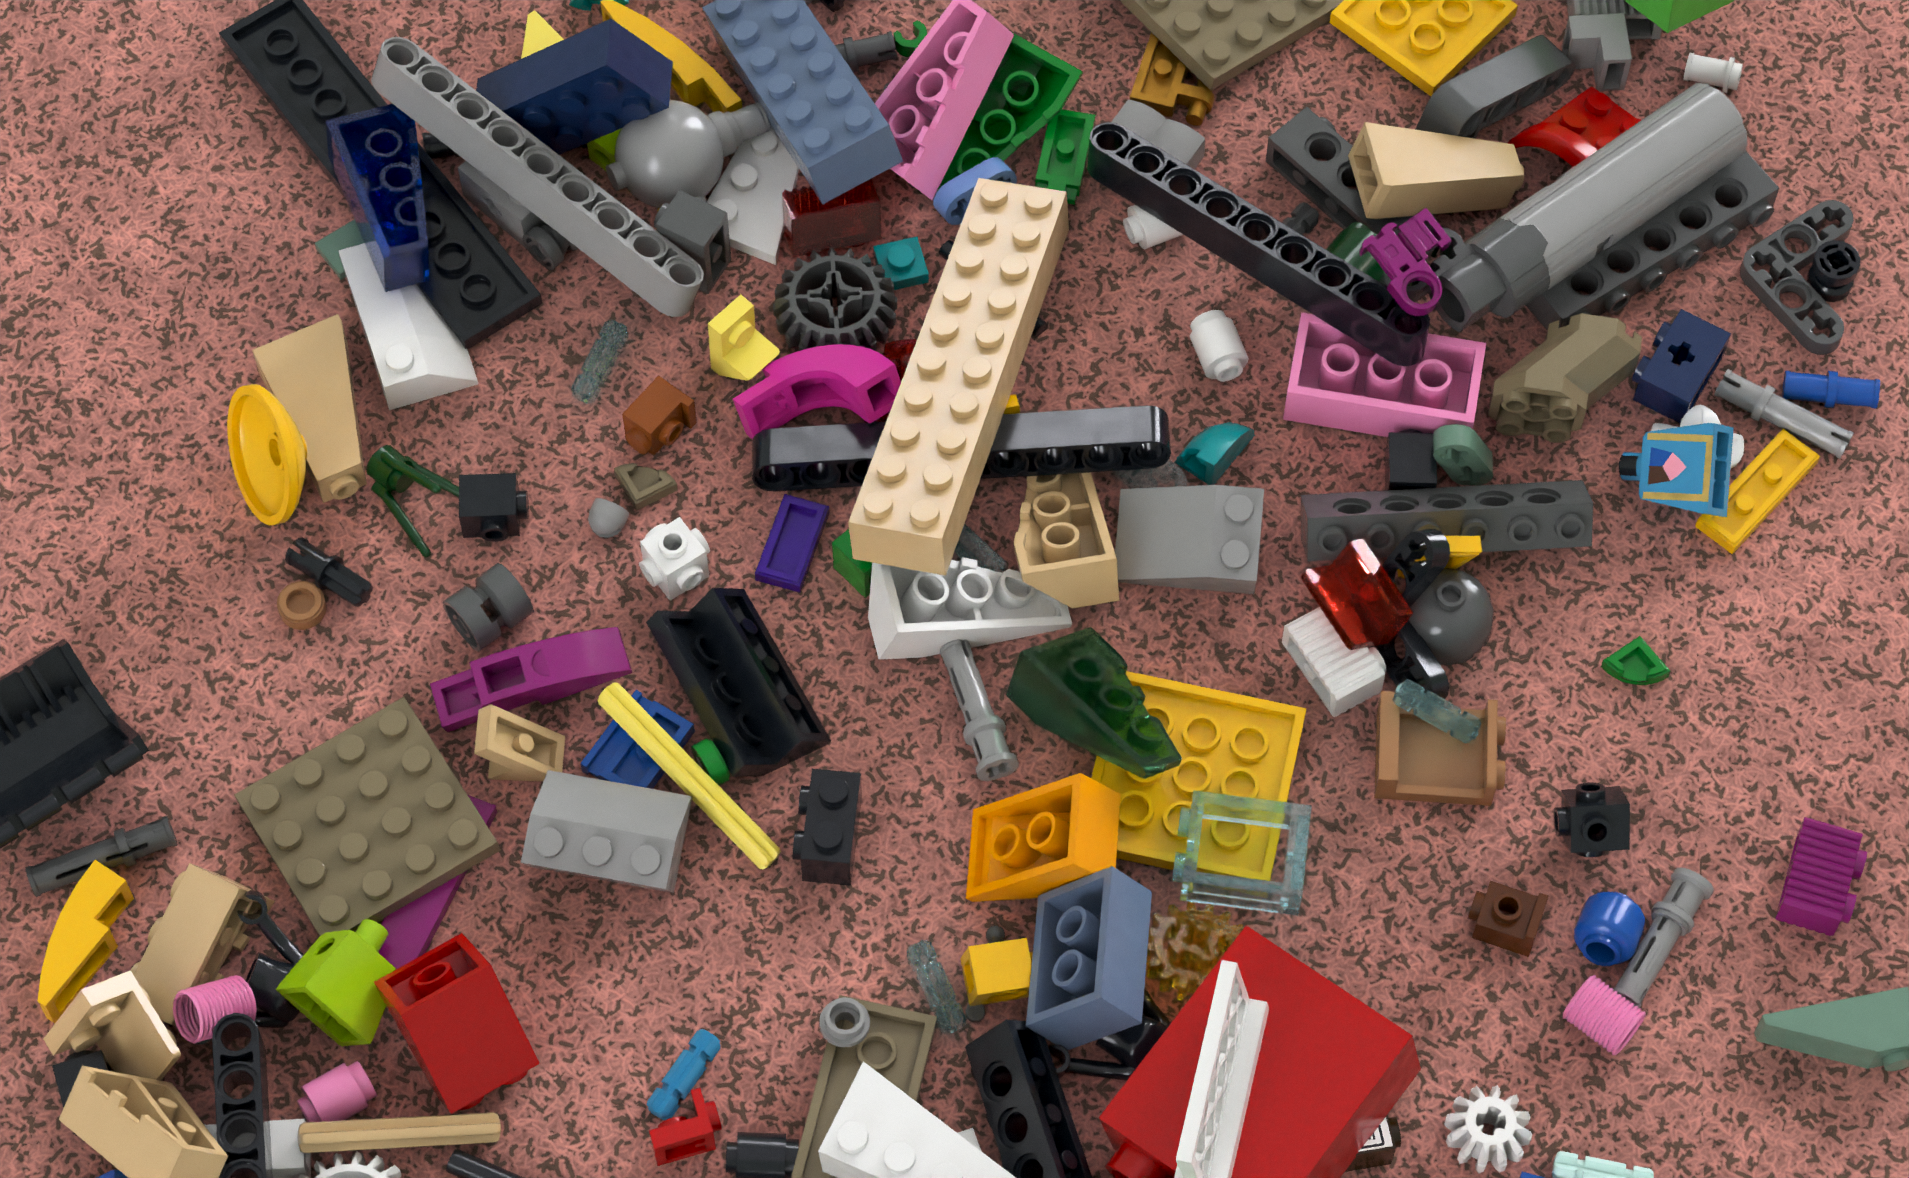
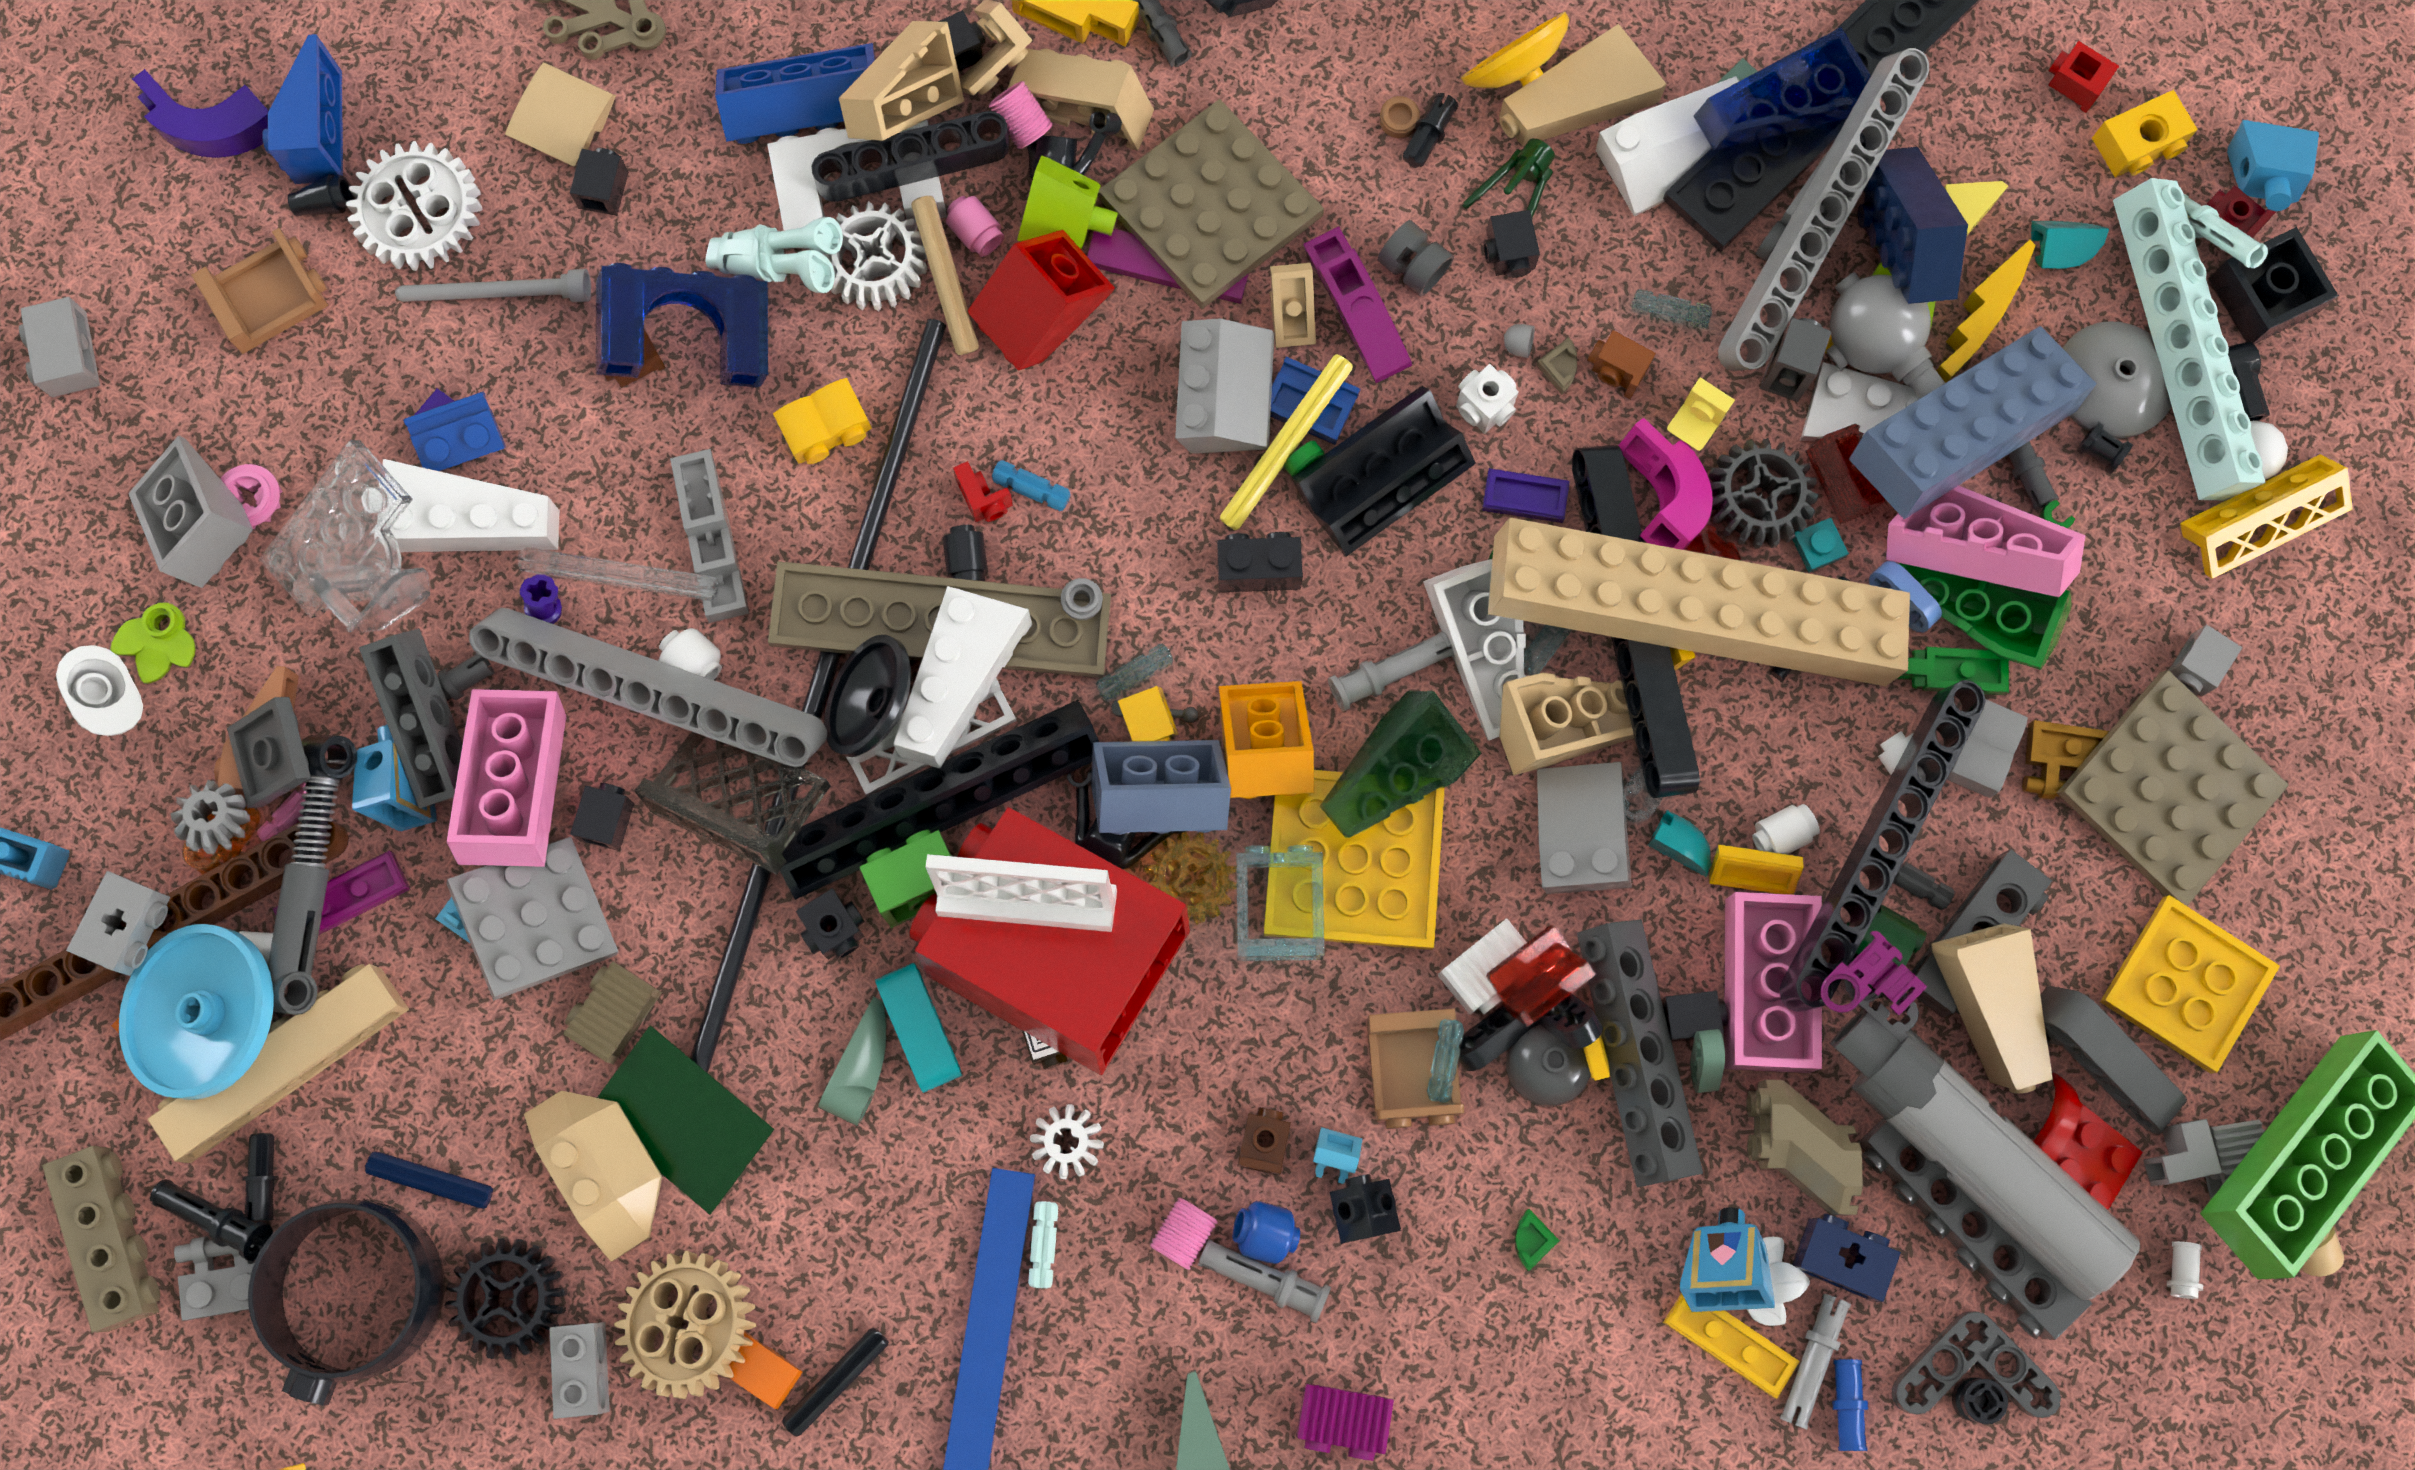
camera: 80 degrees right, 15 degrees up
(1257, 380) = (1755, 870): none -> yellow tile
(1524, 842) = (1337, 1151): none -> medium azure tile

